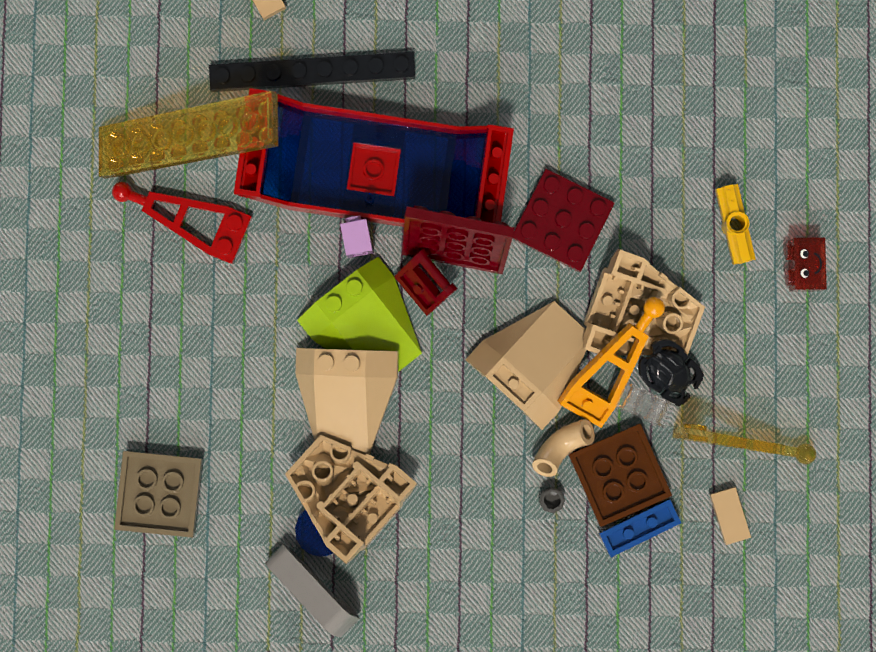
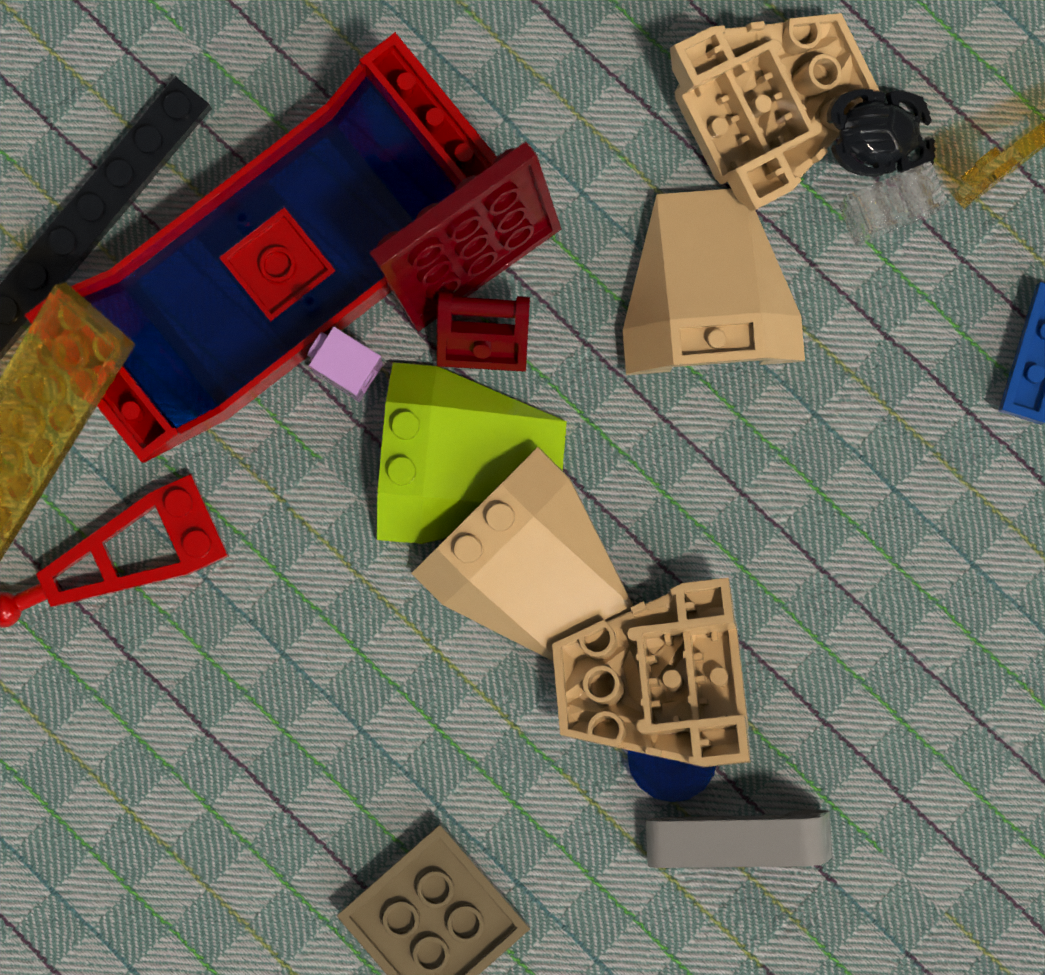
camera: 40 degrees left, 0 degrees up
(551, 500) = (904, 430): dark grey tile -> none
(560, 445) = (845, 354): tan cylinder -> none
(563, 220) = (566, 88): dark red plate -> none
(588, 403) = (831, 269): light orange plate -> none
(620, 475) = (951, 316): reddish brown plate -> none

